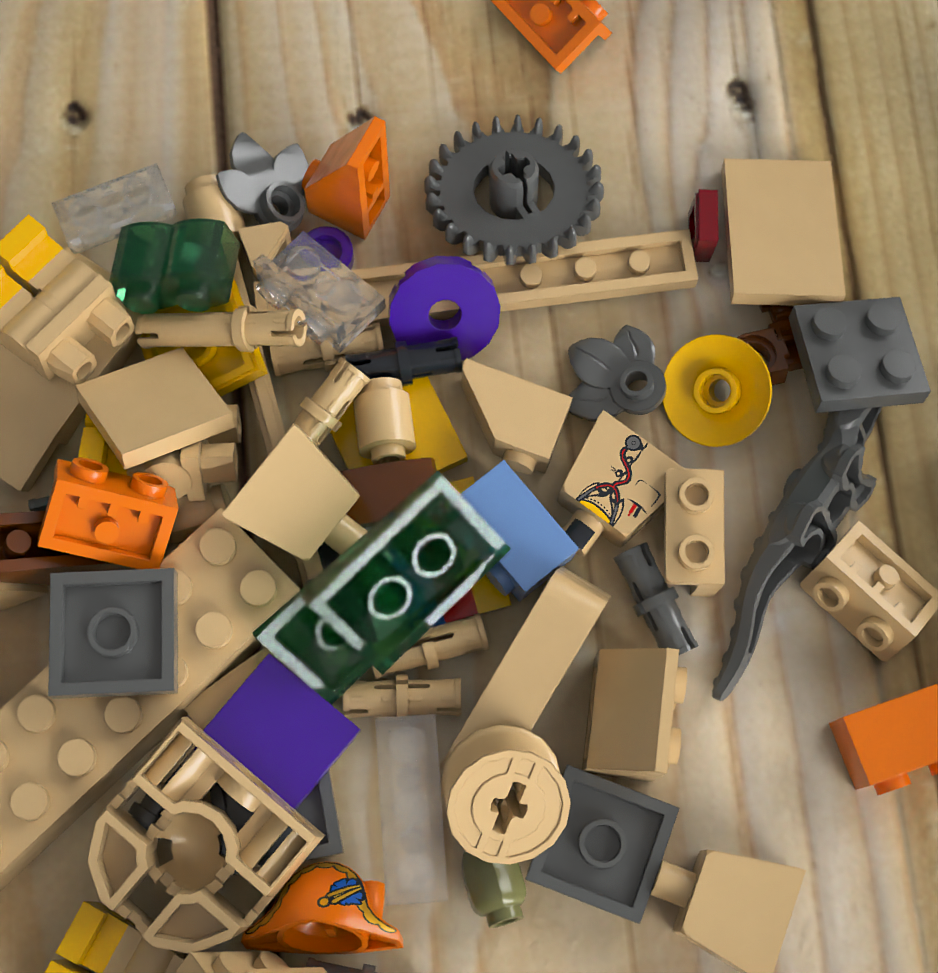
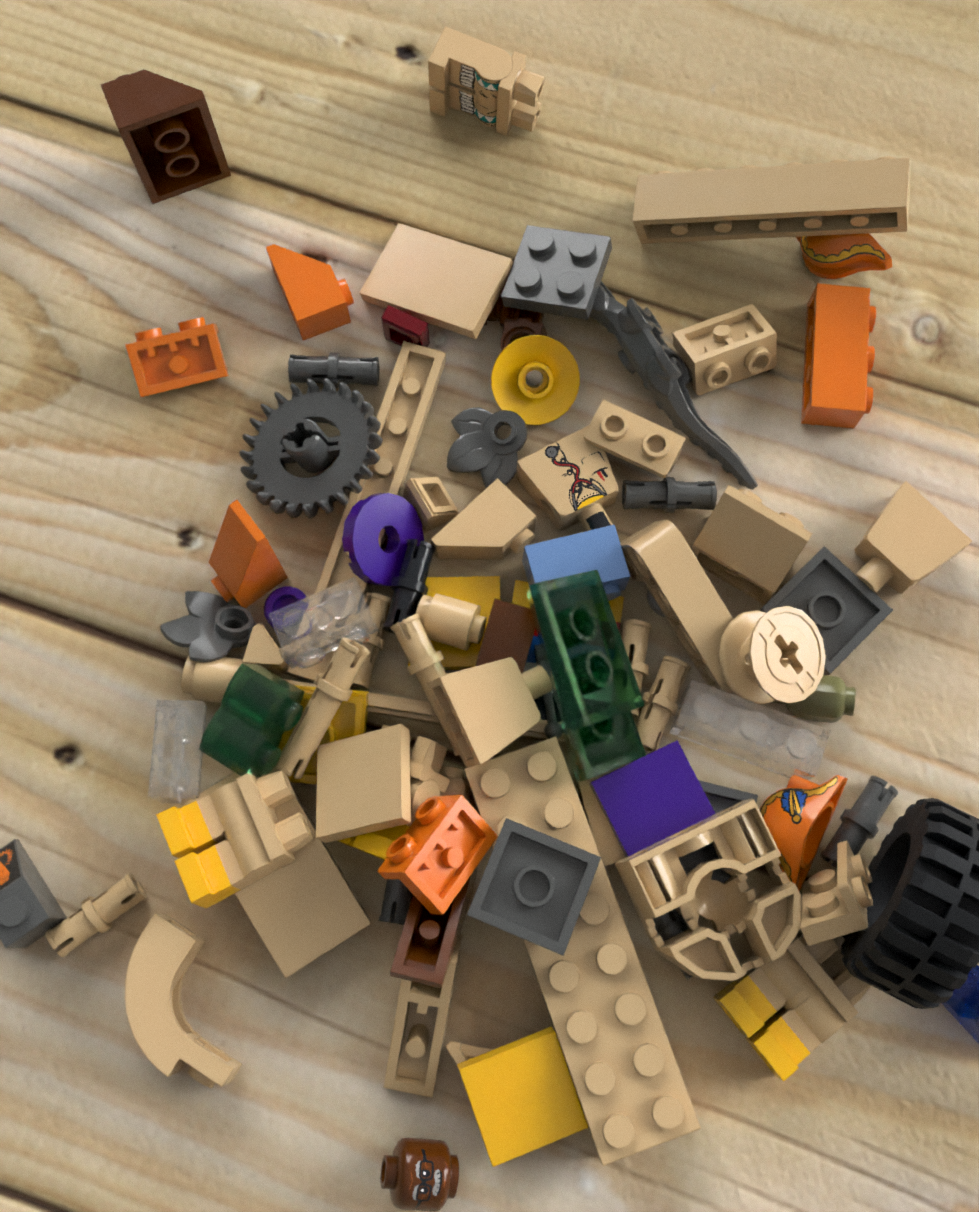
camera: 60 degrees left, 0 degrees up
(519, 344) = (430, 501): none -> tan slope
(620, 175) = (335, 368): none -> dark grey pin
(694, 107) = (311, 291): none -> orange slope

